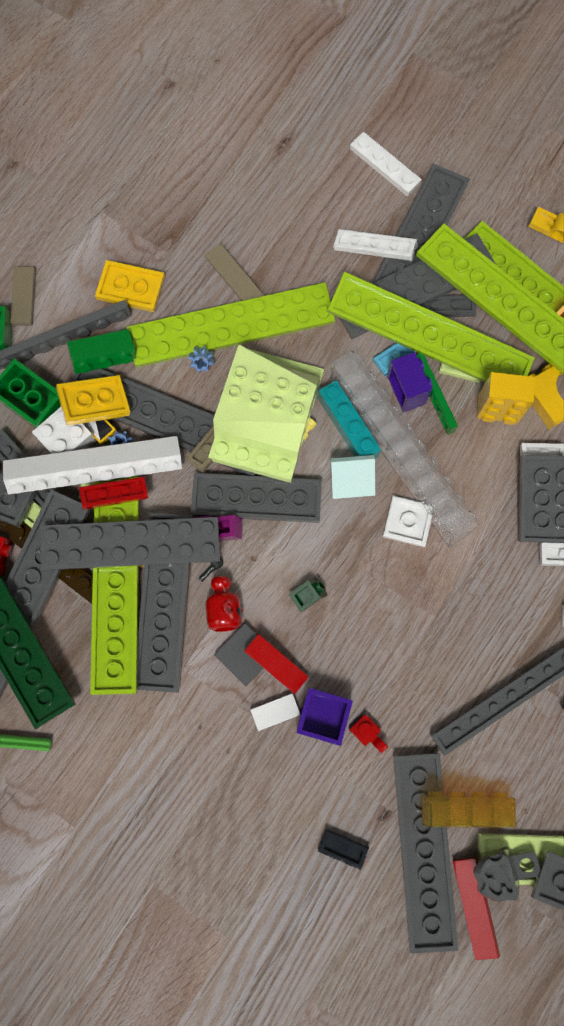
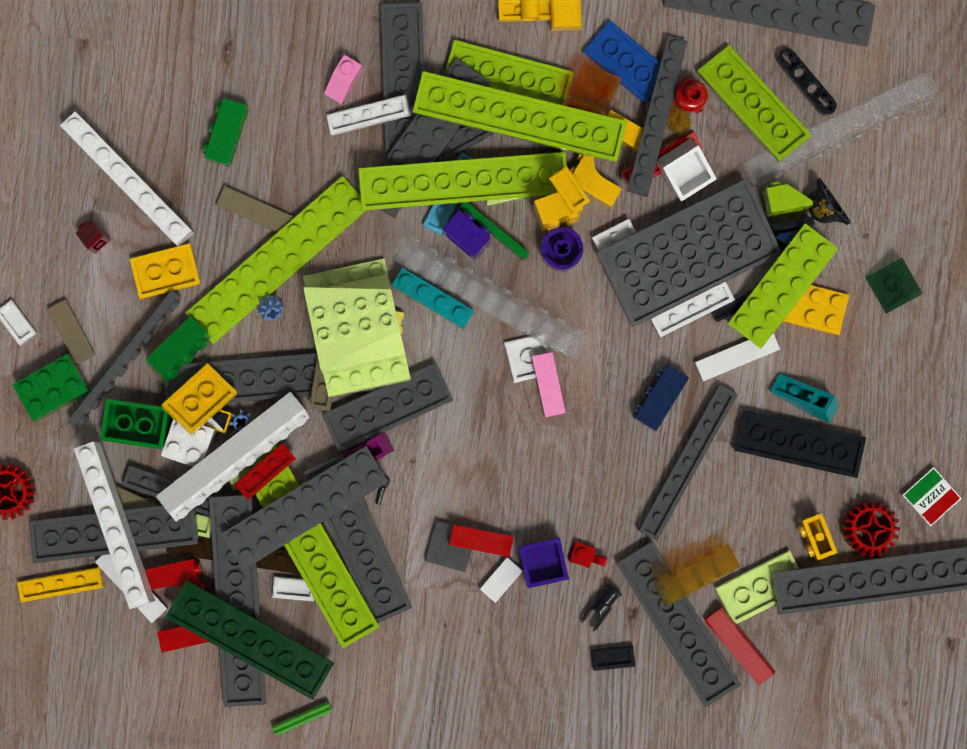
camera: 30 degrees left, 10 degrees up
(77, 614) = (291, 589): none -> white tile
(86, 228) = (92, 236): none -> dark red slope
(142, 197) = (127, 179): none -> white brick
(223, 607) = (411, 517): red piece -> none
(246, 201) = (225, 132): none -> green brick
(308, 594) = (477, 467): dark green bracket -> none
(353, 476) = (462, 346): light aqua tile -> none
(361, 790) = (603, 604): none -> black piece
(369, 206) = (343, 79): none -> bright pink slope
(385, 164) = (334, 24): white plate -> none
(414, 553) = (548, 384): none -> bright pink tile
(487, 428) = (560, 237): none -> dark purple brick
(500, 874) = (745, 608): dark grey piece -> none
(515, 619) = (660, 397): none -> dark blue brick
(530, 377) = (569, 189): none -> yellow tile

